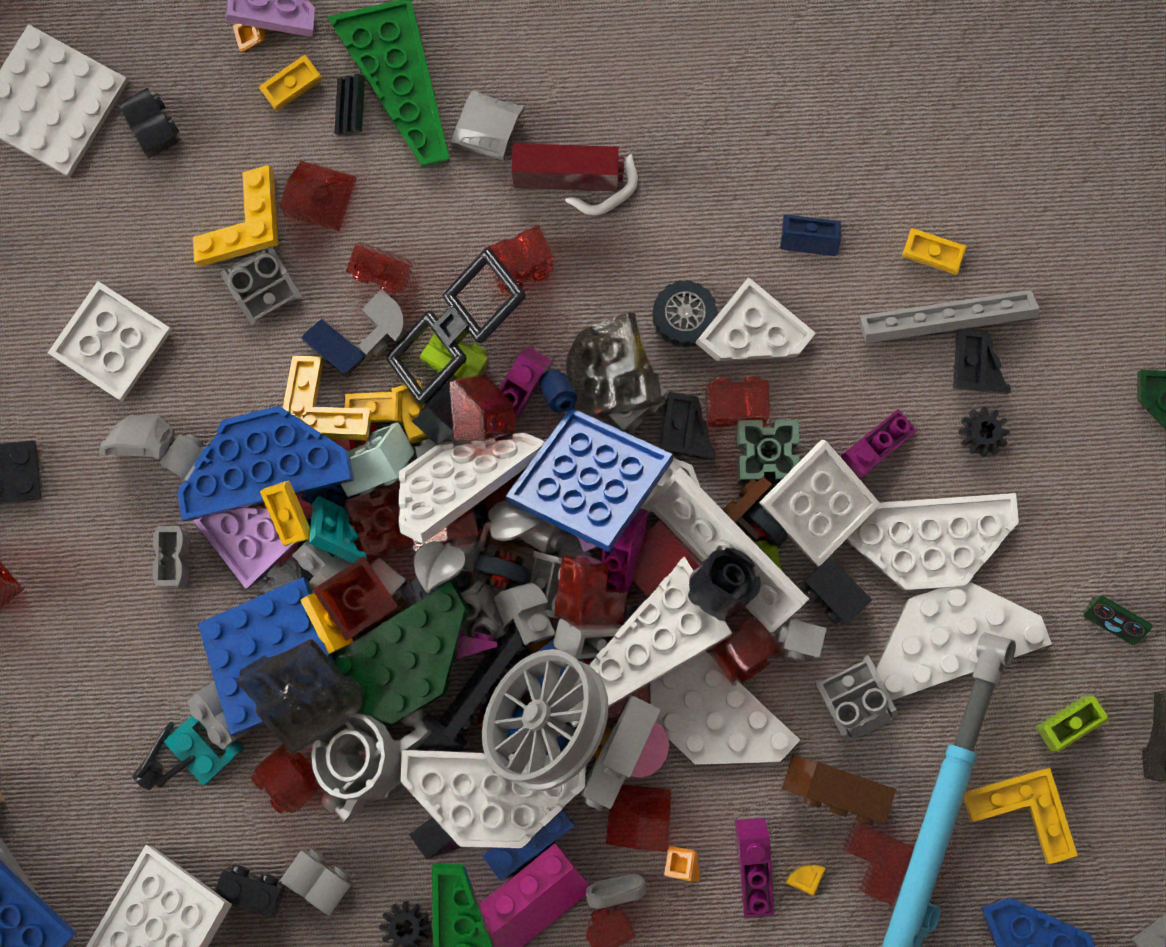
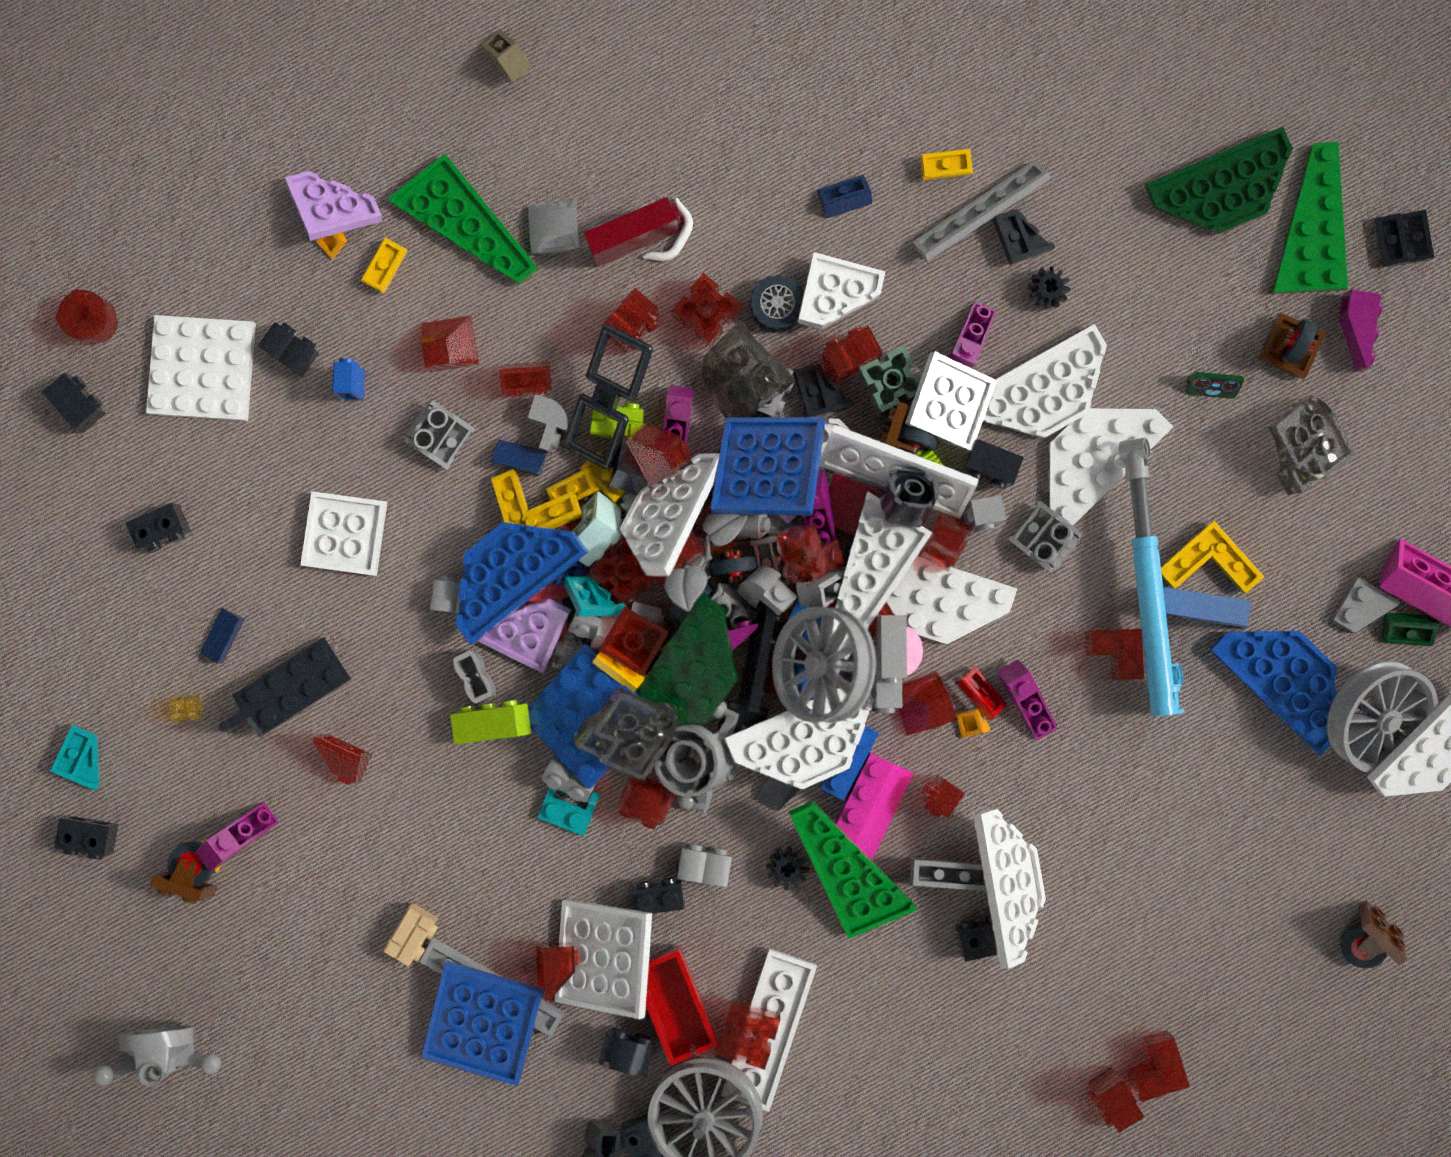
camera: 20 degrees left, 5 degrees up
(101, 913) = (554, 966): none -> clear red slope
(138, 437) = (404, 597): light grey slope -> none
(150, 770) = (538, 843): black plant -> none
(163, 614) = (490, 722): none -> lime brick
(193, 183) = (348, 380): none -> blue brick
(255, 233) = (416, 397): yellow plate -> none
(286, 513) = (549, 601): yellow plate -> none
(349, 105) = (436, 264): black tile -> none
(558, 391) = (709, 409): dark blue brick -> none
(613, 269) = (706, 295): none -> clear red brick
(615, 891) = (932, 766): light grey tile -> none
(705, 837) = (982, 696): none -> red tile
(806, 878) = (1069, 689): yellow tile -> none
(839, 790) = (1064, 612): reddish brown wedge -> none
(998, 859) = (1207, 607): none -> medium blue slope
(1072, 723) = (1216, 479): lime brick -> none

